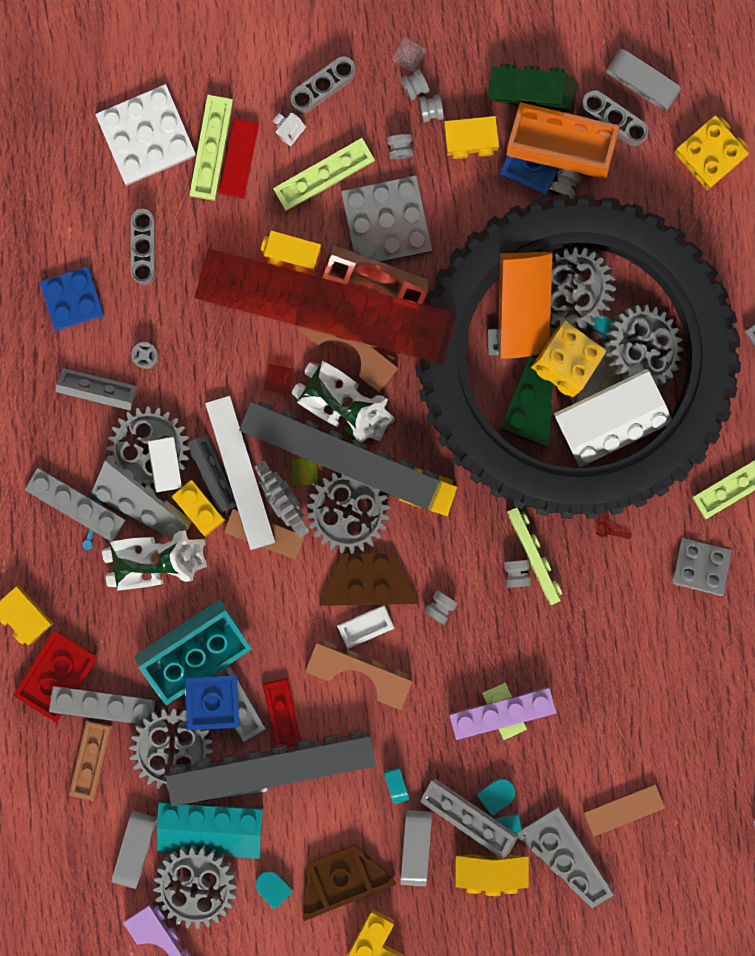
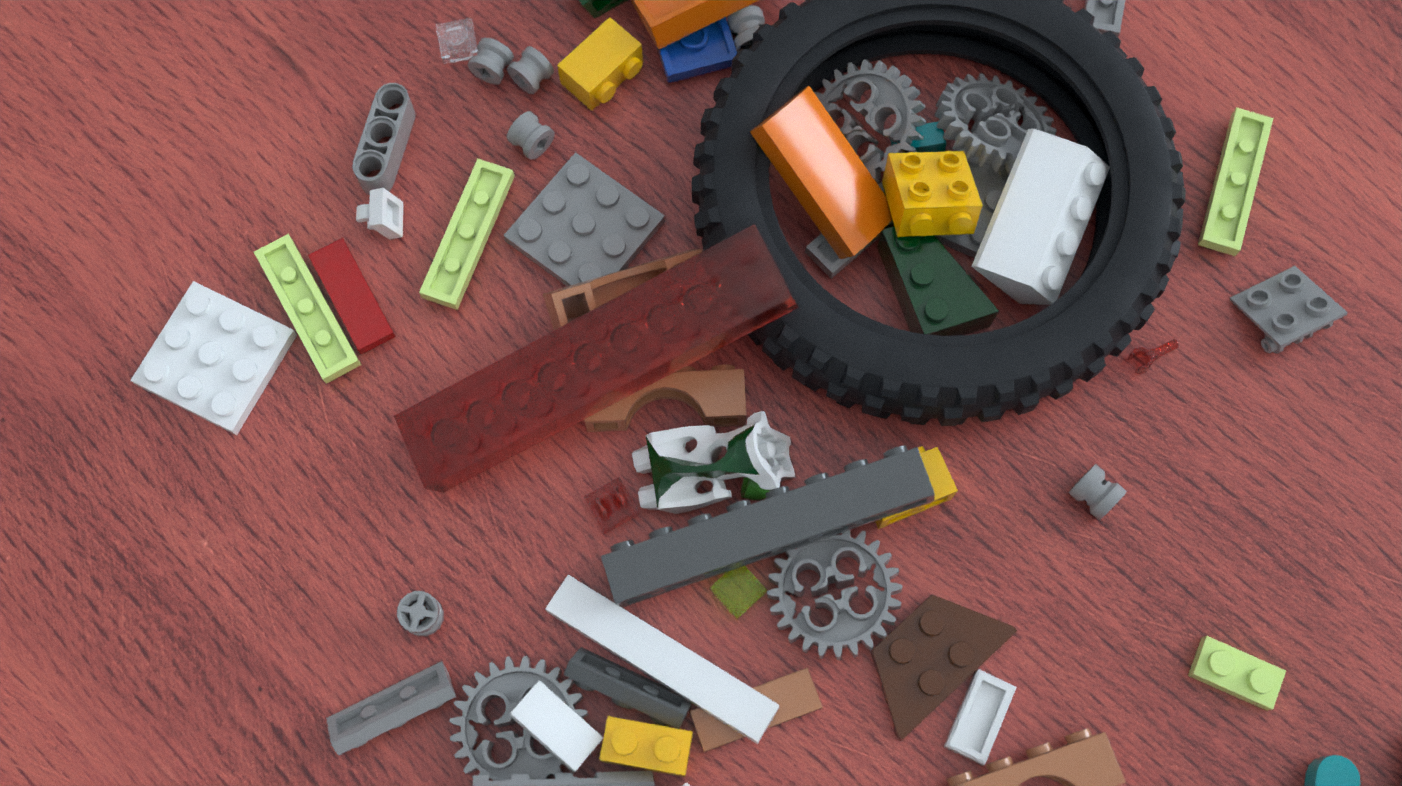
camera: 40 degrees left, 15 degrees down
(71, 298) = (271, 623): blue plate -> none
(143, 234) = (300, 472): light grey beam -> none
(281, 499) = (743, 639): light grey gear -> none
(291, 252) = (497, 333): yellow brick -> none
(440, 607) = (1047, 611): light grey wheel -> none
(502, 713) = (1231, 700): lavender arch -> none
(540, 565) = (1080, 448): yellowish green plate -> none

